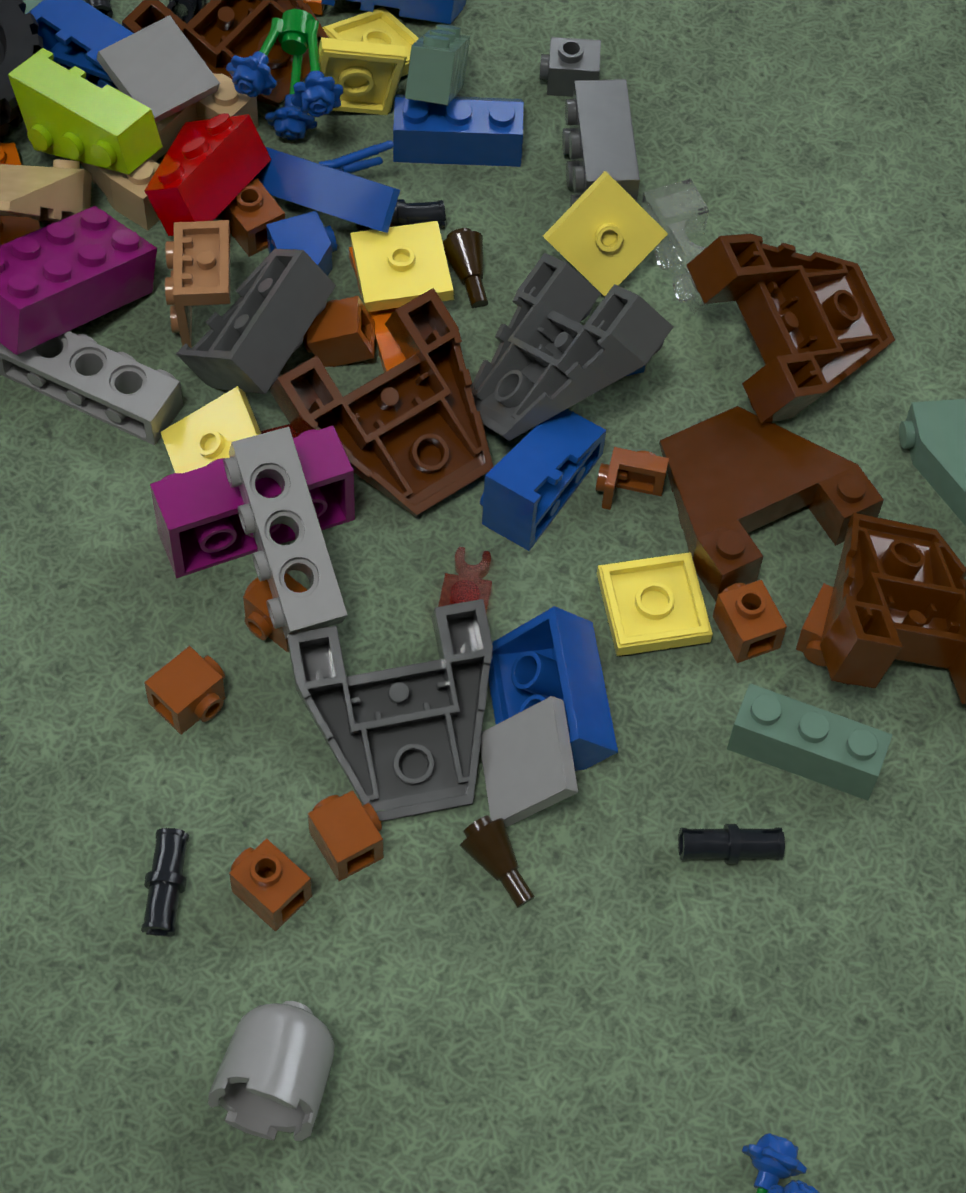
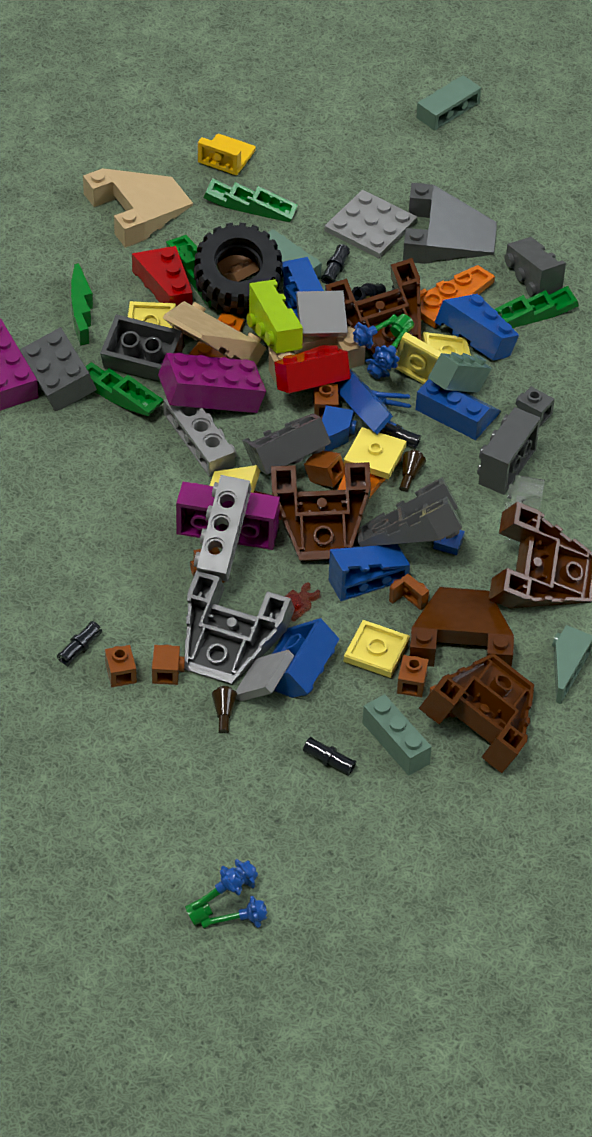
camera: 35 degrees right, 10 degrees down
(187, 690) = (144, 576): dark orange brick -> none
(199, 271) = (274, 408): medium nougat bracket -> none
(275, 1071) = (66, 728): light grey cylinder -> none
(605, 234) = (479, 483): light yellow plate -> none

